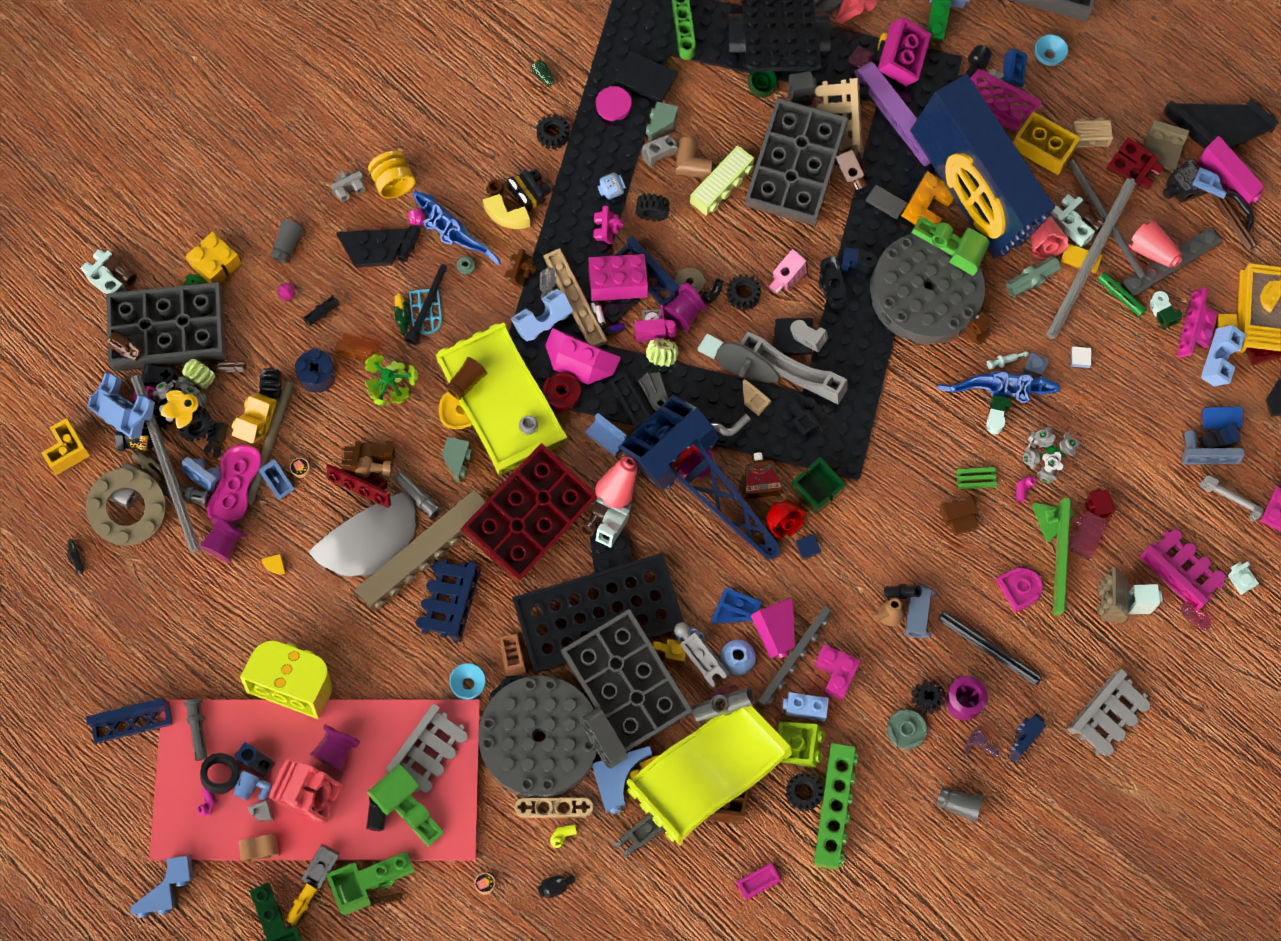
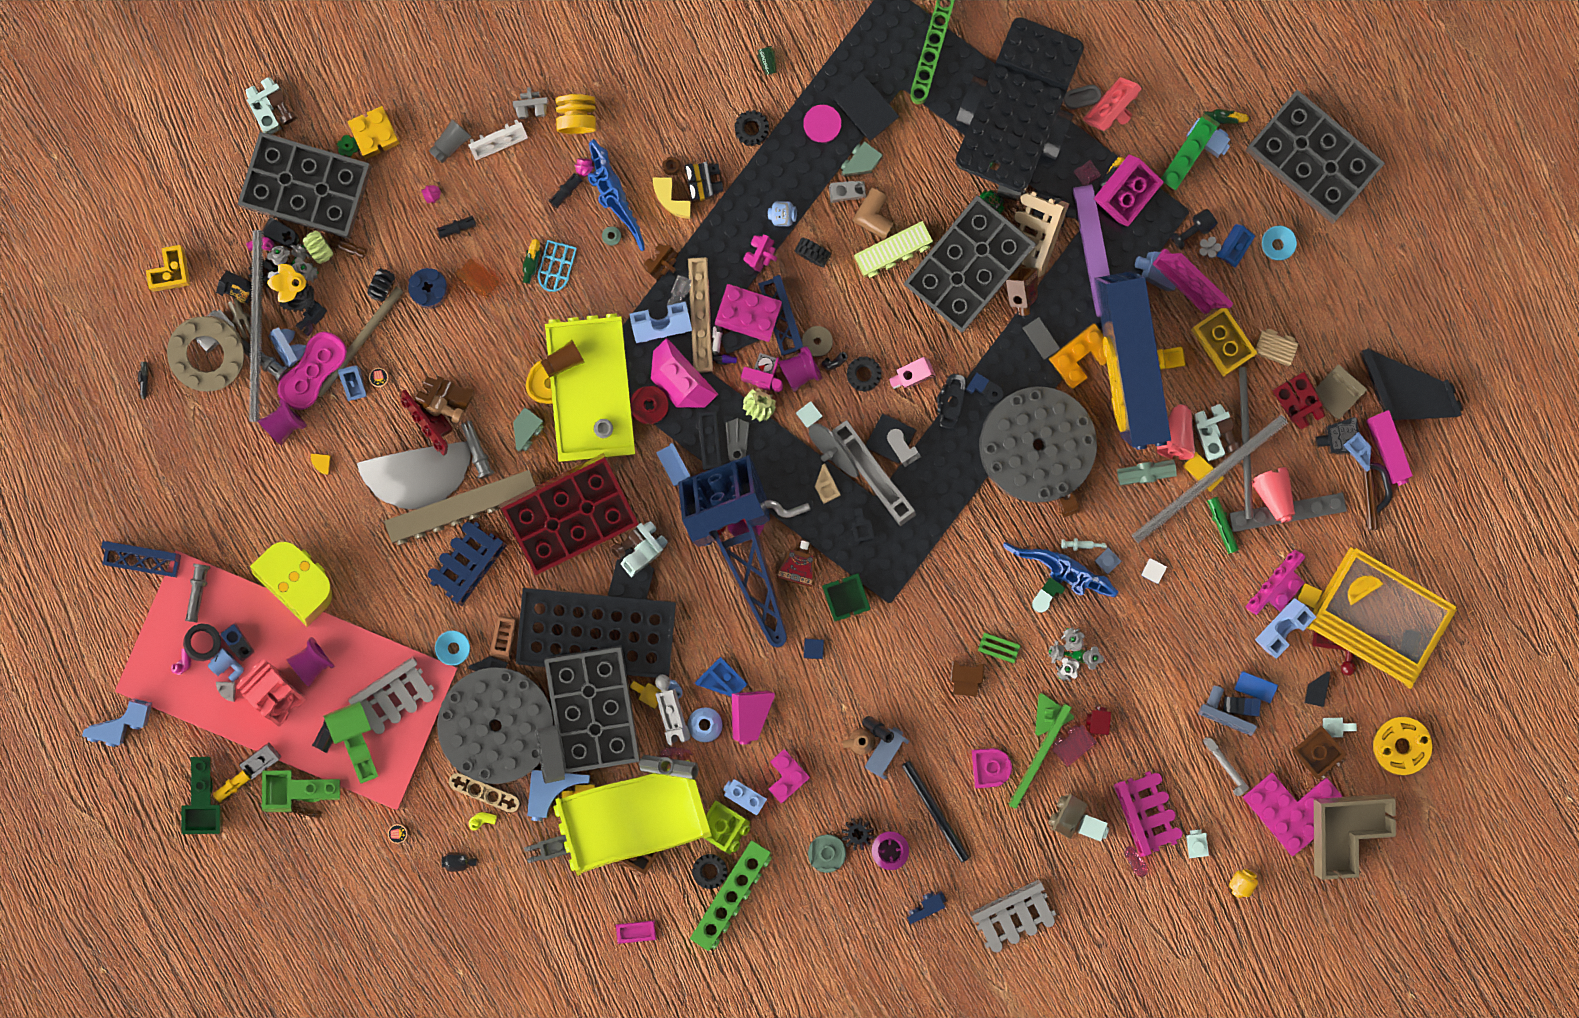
camera: 30 degrees right, 15 degrees up
(118, 410) = (230, 256): medium blue bracket -> none
(124, 346) = (257, 197): reddish brown hinge -> none
(256, 420) = (353, 317): yellow brick -> none
(259, 848) = (212, 723): medium nougat axle -> none
(330, 225) = (498, 140): none -> white plate
(372, 247) = (530, 179): black wing -> none
(391, 373) = (484, 327): lime plant -> none
(413, 336) = (534, 288): black piece -> none
(618, 483) = (659, 523): coral cone -> none
(785, 518) = (802, 614): red cylinder -> none
(790, 665) = (747, 752): dark grey plate -> none
(960, 803) = (842, 940): dark grey plant -> none
(965, 251) = (1087, 427): bright green plate -> none
(979, 739) = (883, 891): plant -> none
(1023, 486) = (1037, 674): dark pink arm -> none
(1164, 311) = (1254, 558): leg -> none

